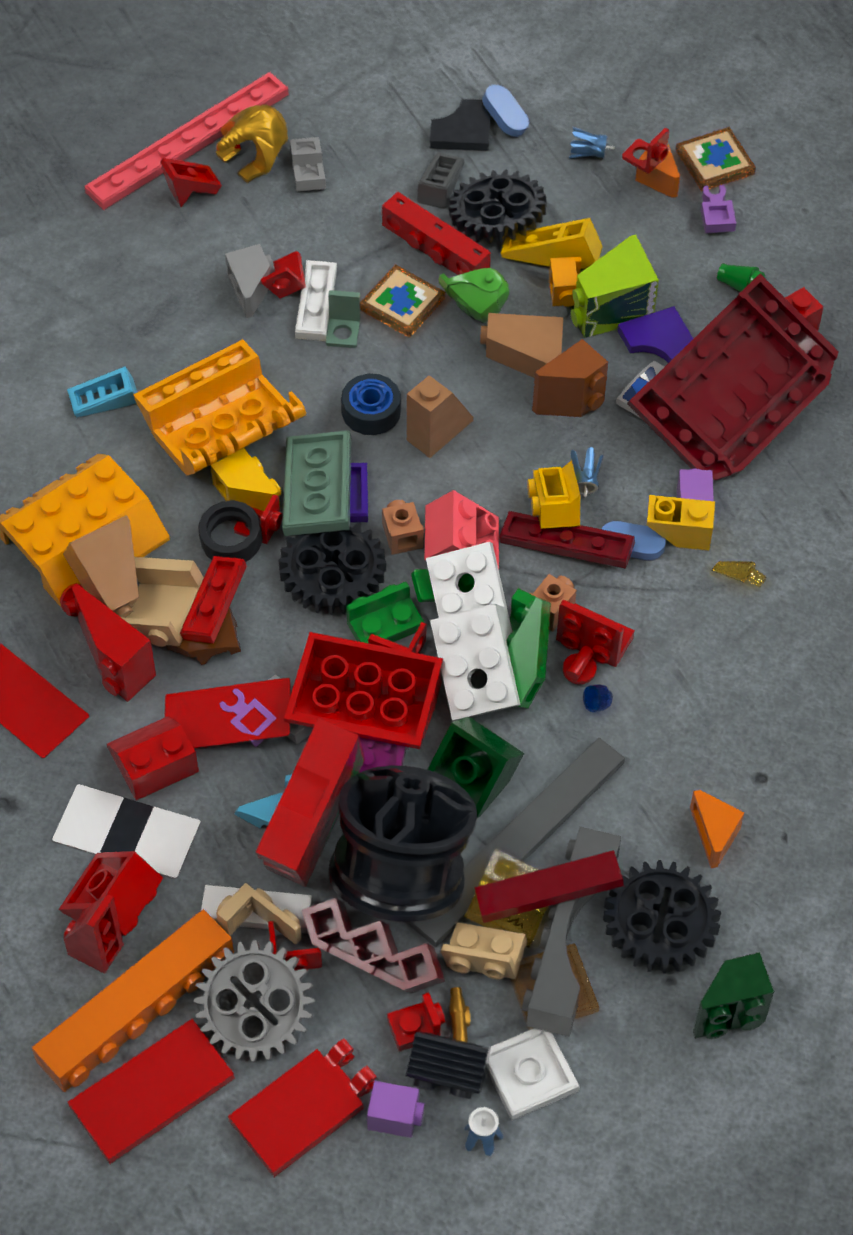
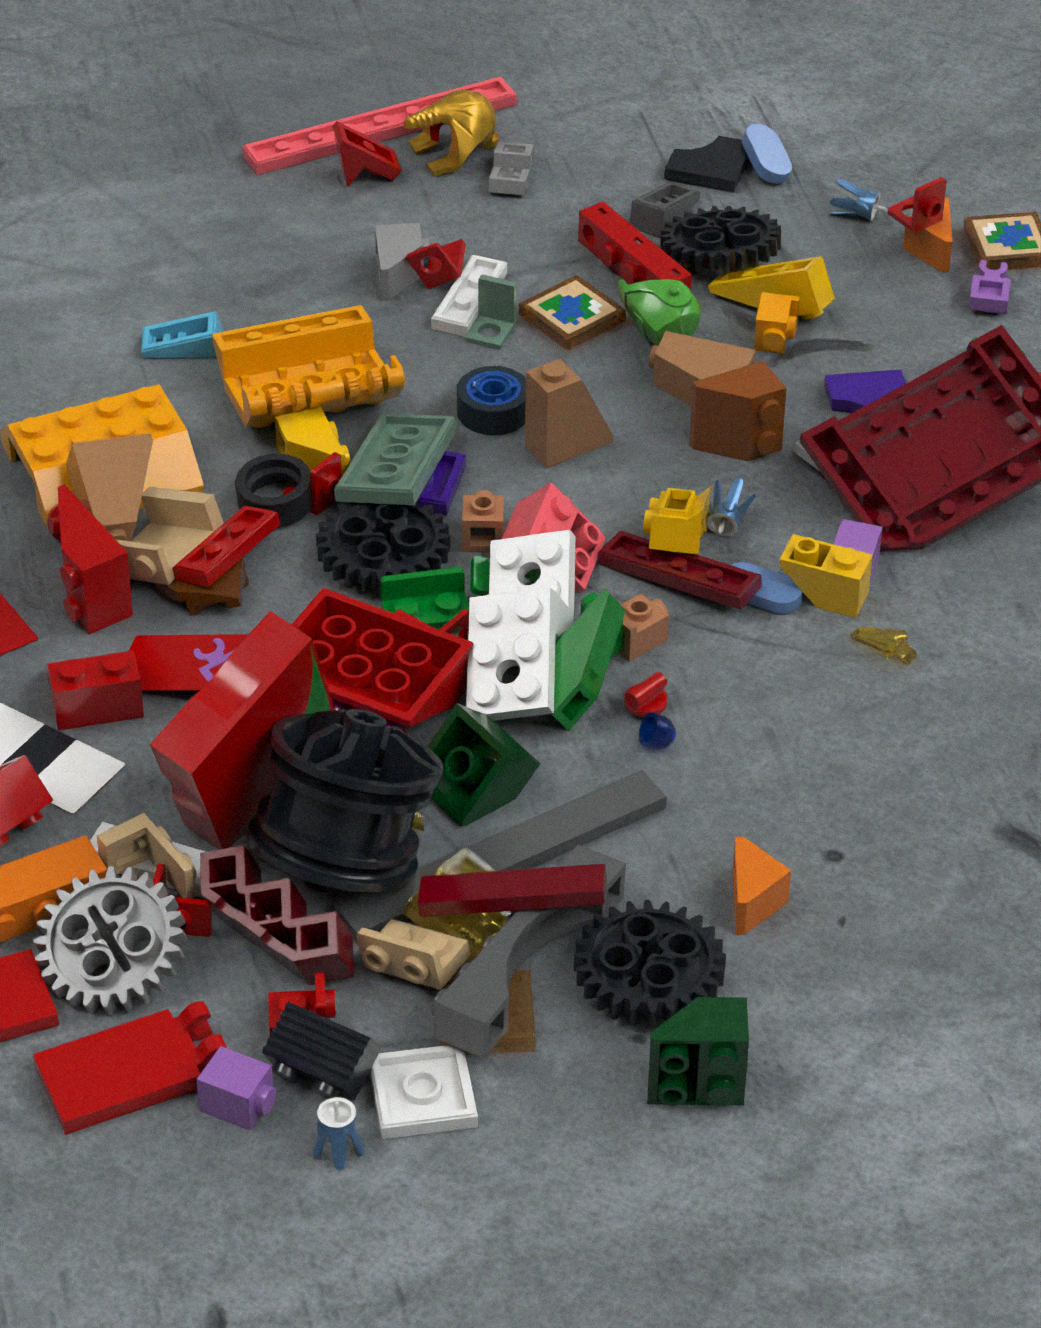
camera: 15 degrees right, 15 degrees down
(459, 1015) = (358, 1010): pearl gold piece -> none
(583, 627) = (677, 655): red bracket -> none
(615, 289) = (826, 333): lime slope -> none

